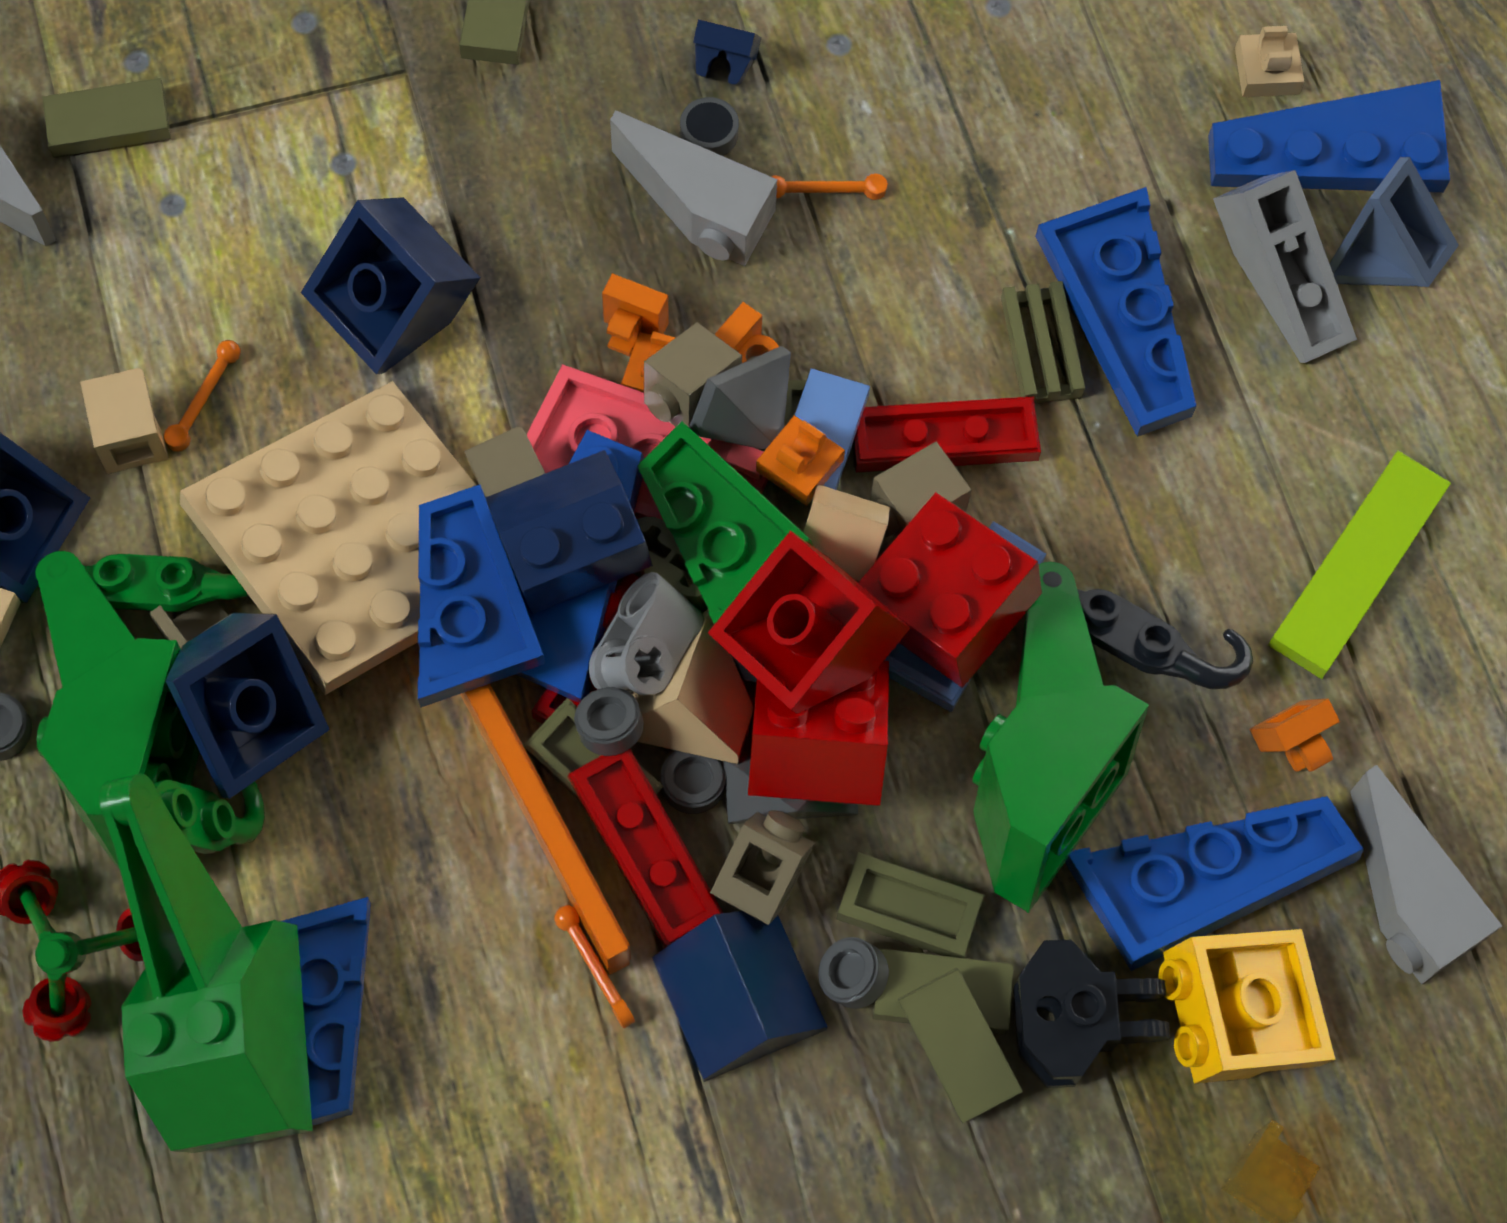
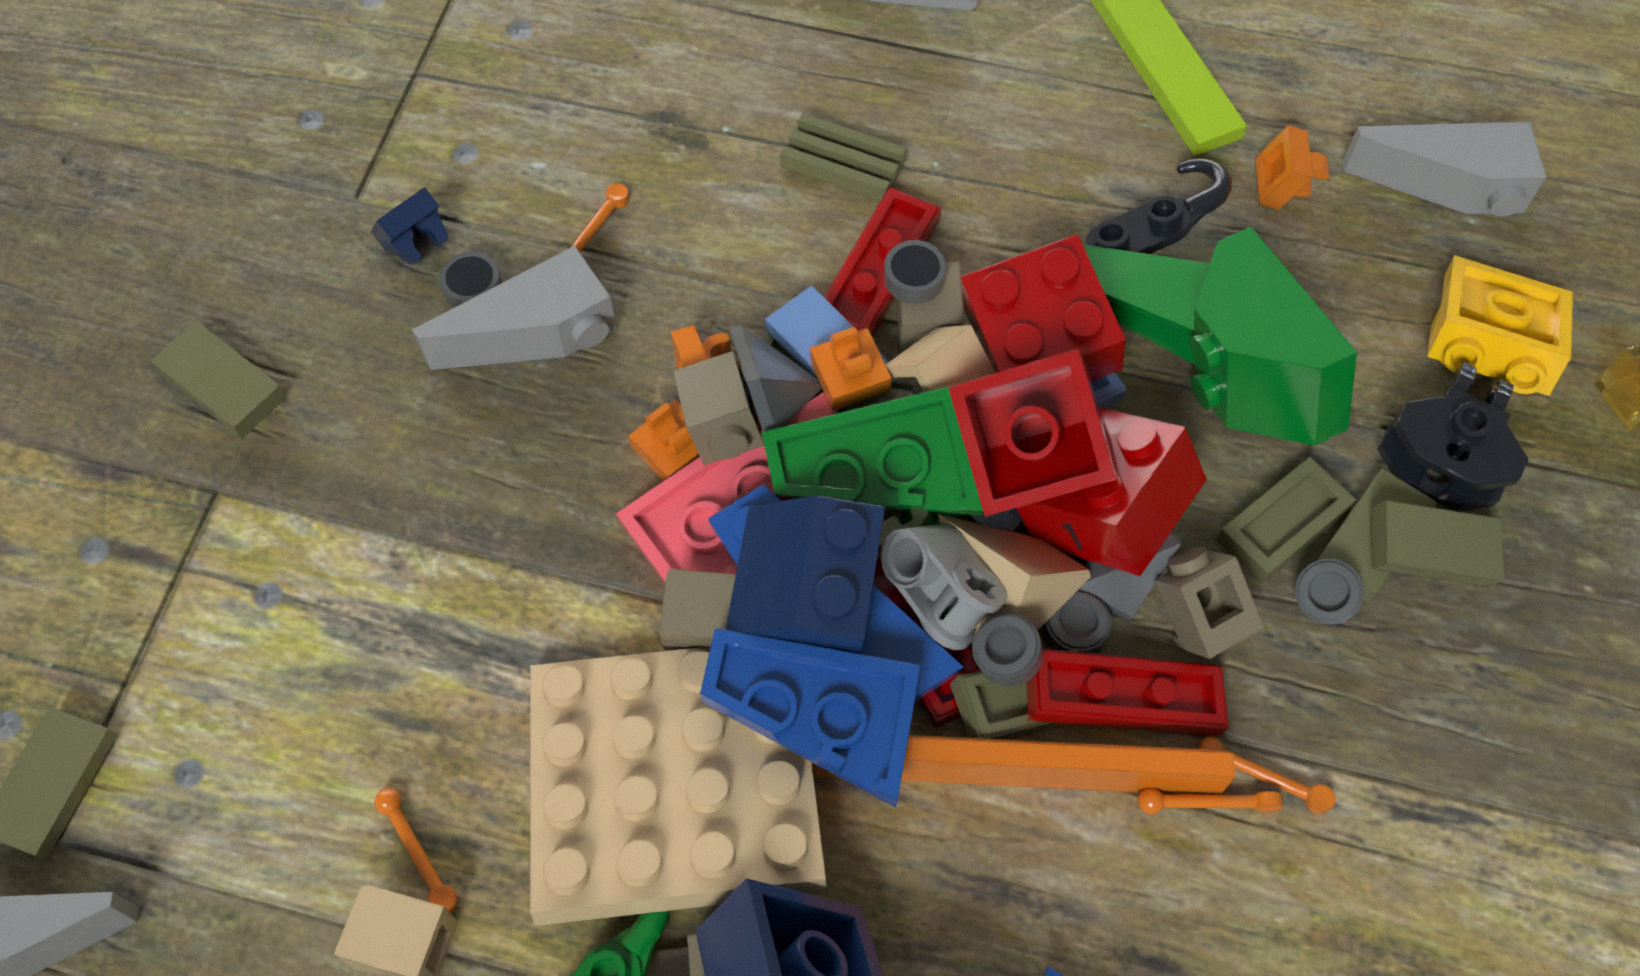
camera: 55 degrees left, 5 degrees down
(388, 282) = (429, 615): dark blue slope -> none
(631, 309) = (608, 429): orange tile -> none
(653, 1056) = (1317, 798): none -> orange hinge
(737, 991) = (1301, 698): dark blue slope -> none
(928, 456) = (914, 271): none -> tile
(1123, 306) = (854, 87): blue wing -> none
(1209, 875) = (1379, 286): blue wing -> none

